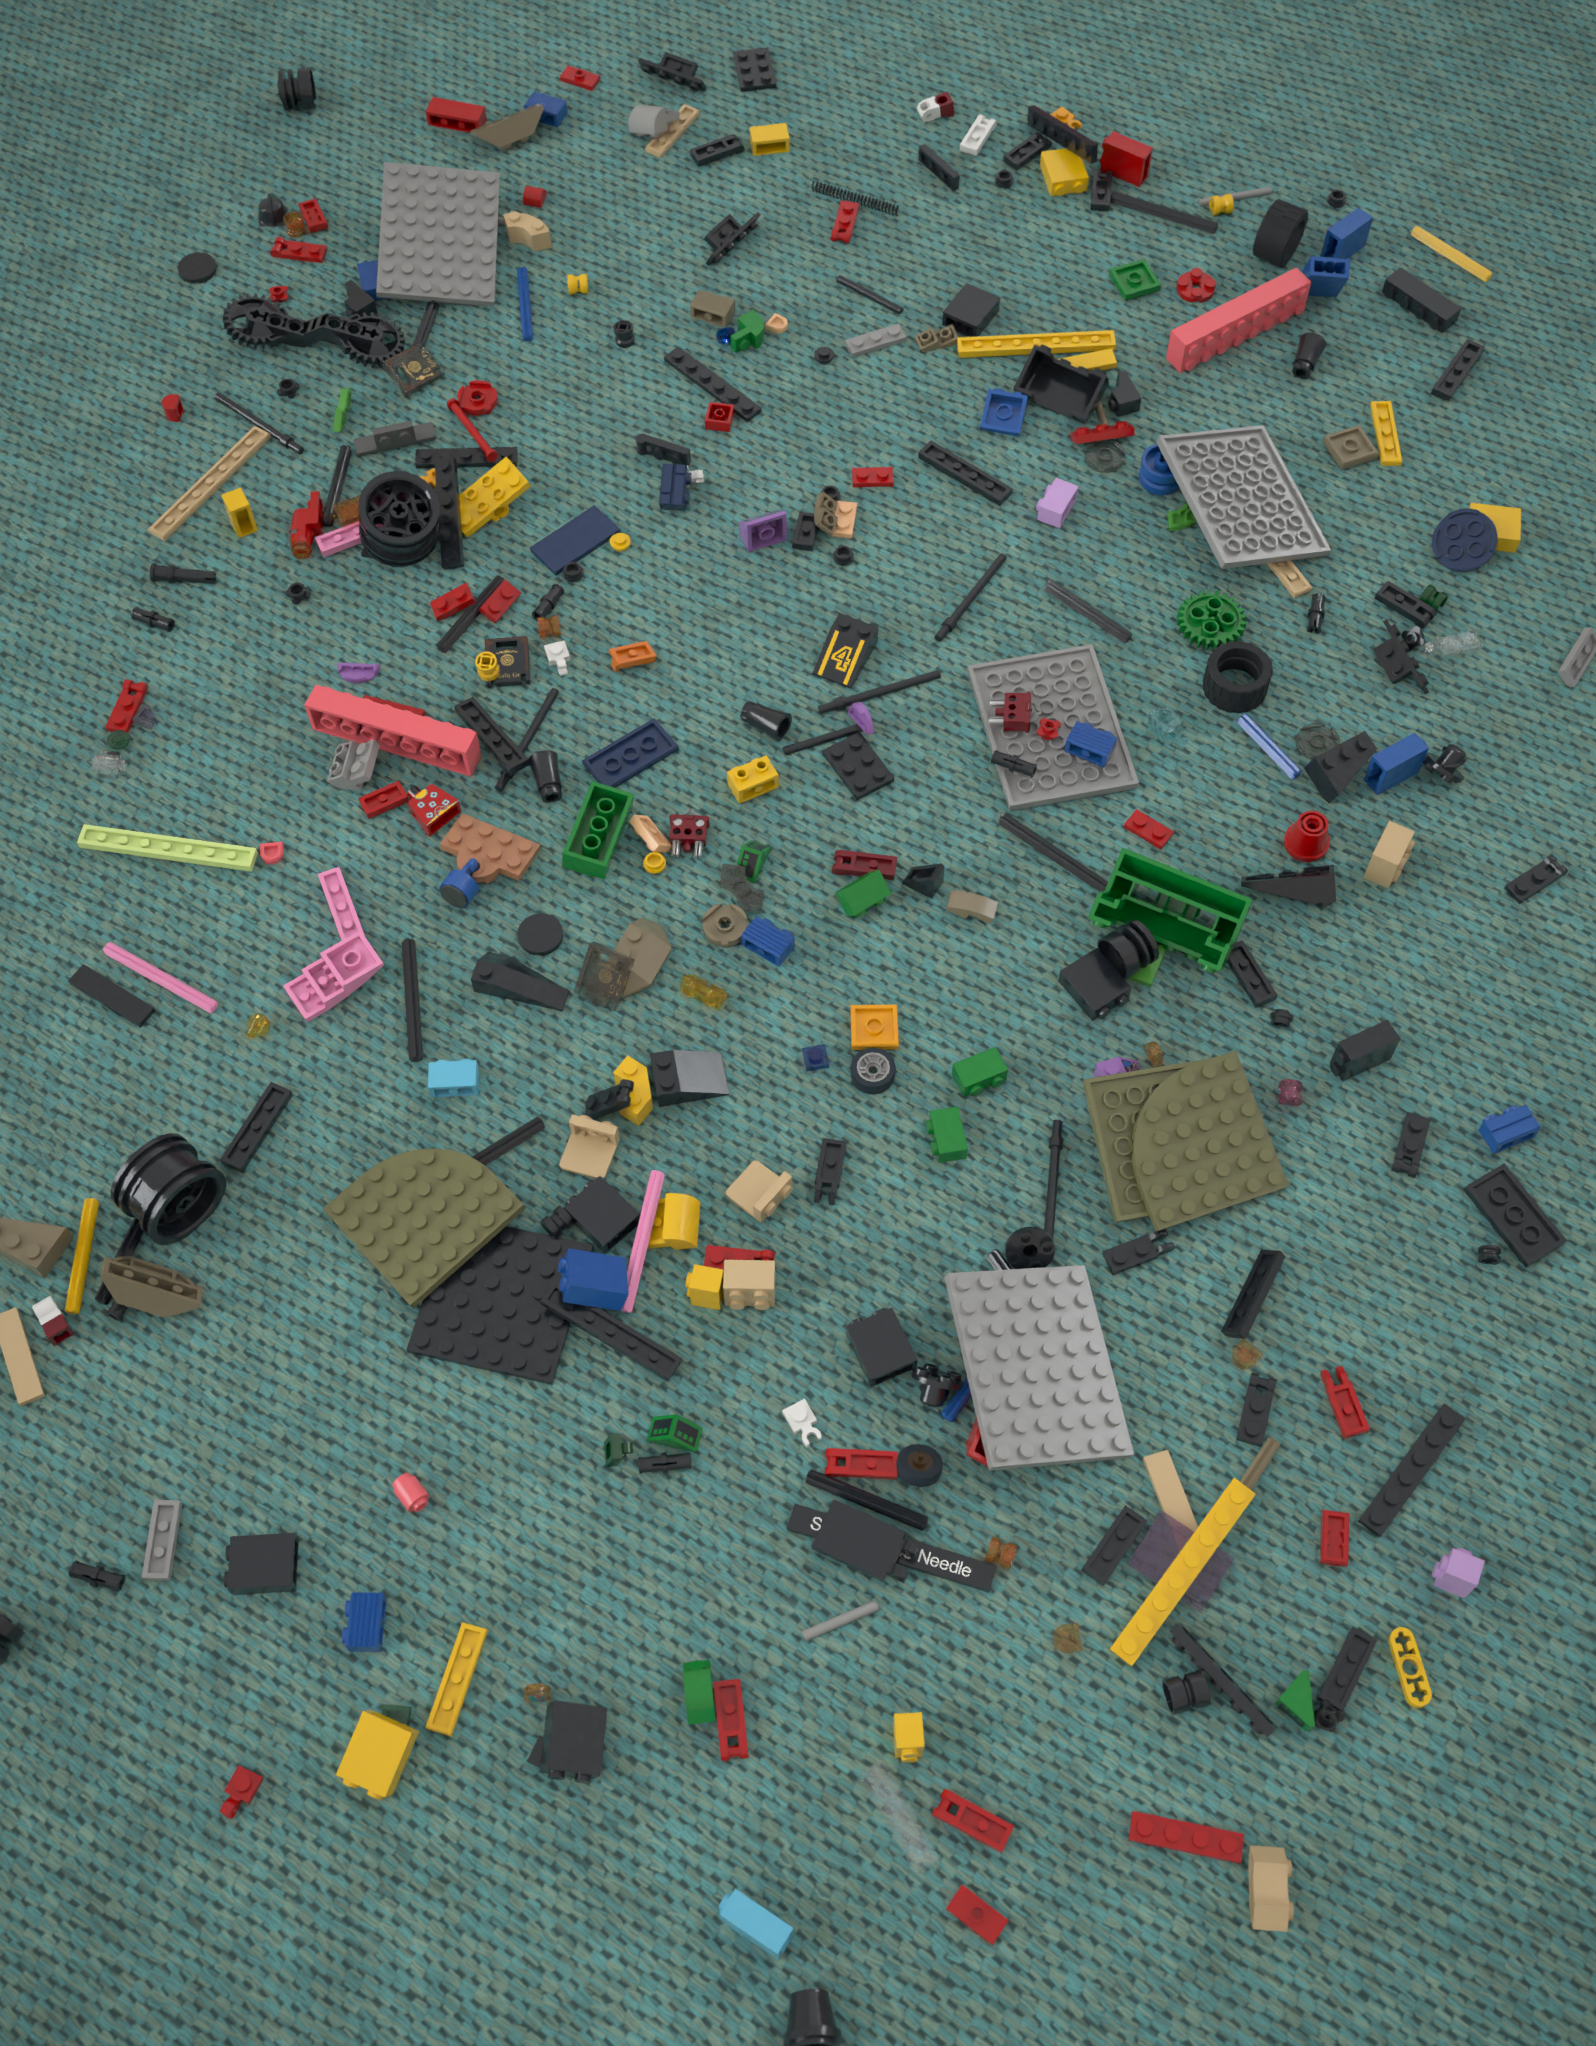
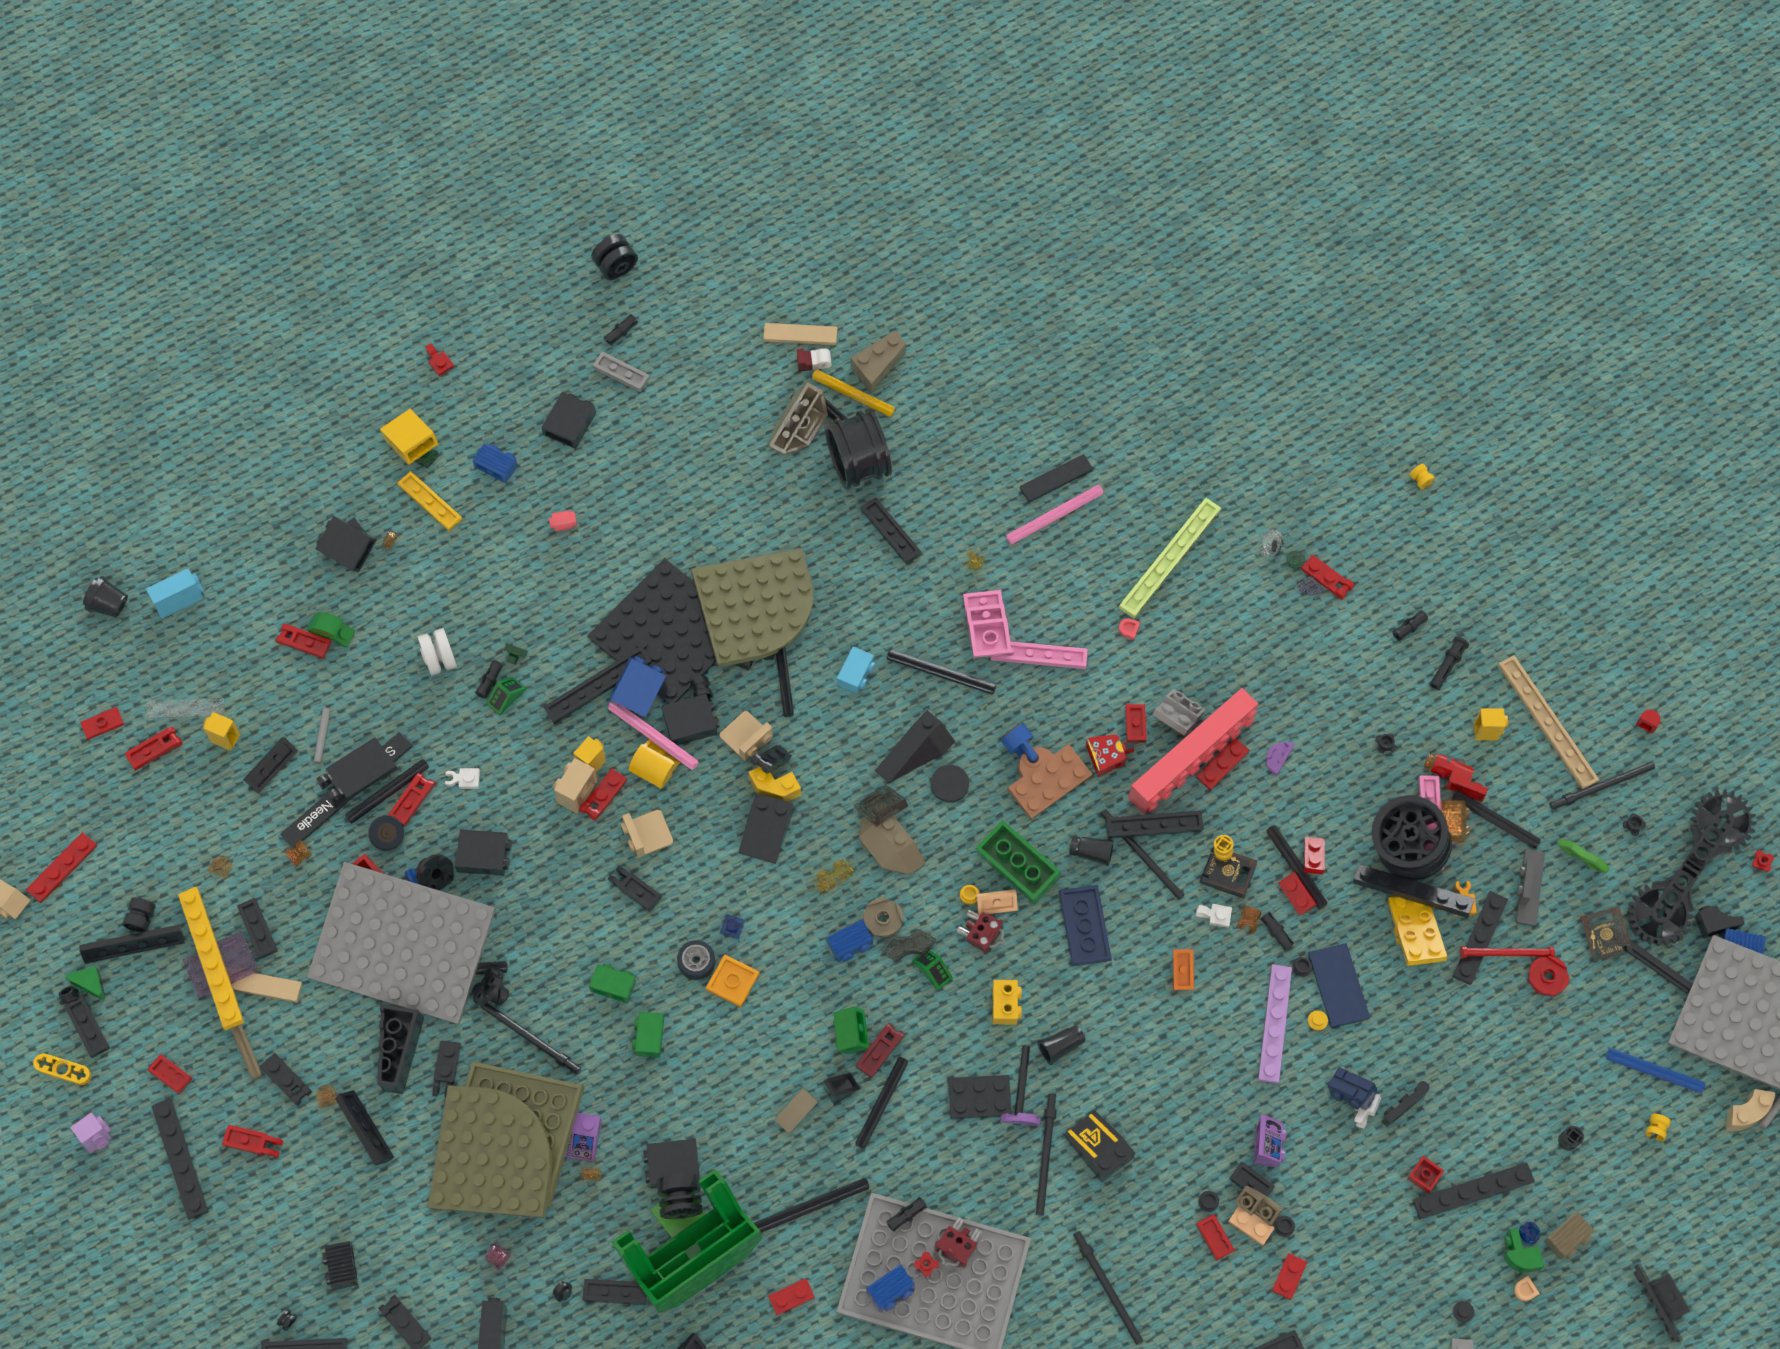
camera: 115 degrees right, 5 degrees up
(641, 572) = (1275, 1024): none -> lavender plate
(665, 1533) = (436, 652): none -> white wheel
(873, 538) = (1215, 1237): none -> red plate
(913, 1655) = (270, 765): none -> black plate
(915, 841) = (881, 1103): none -> black axle
(1149, 1306) = (397, 1045): none -> black wedge
(1402, 1233) = (340, 1265): none -> black brick

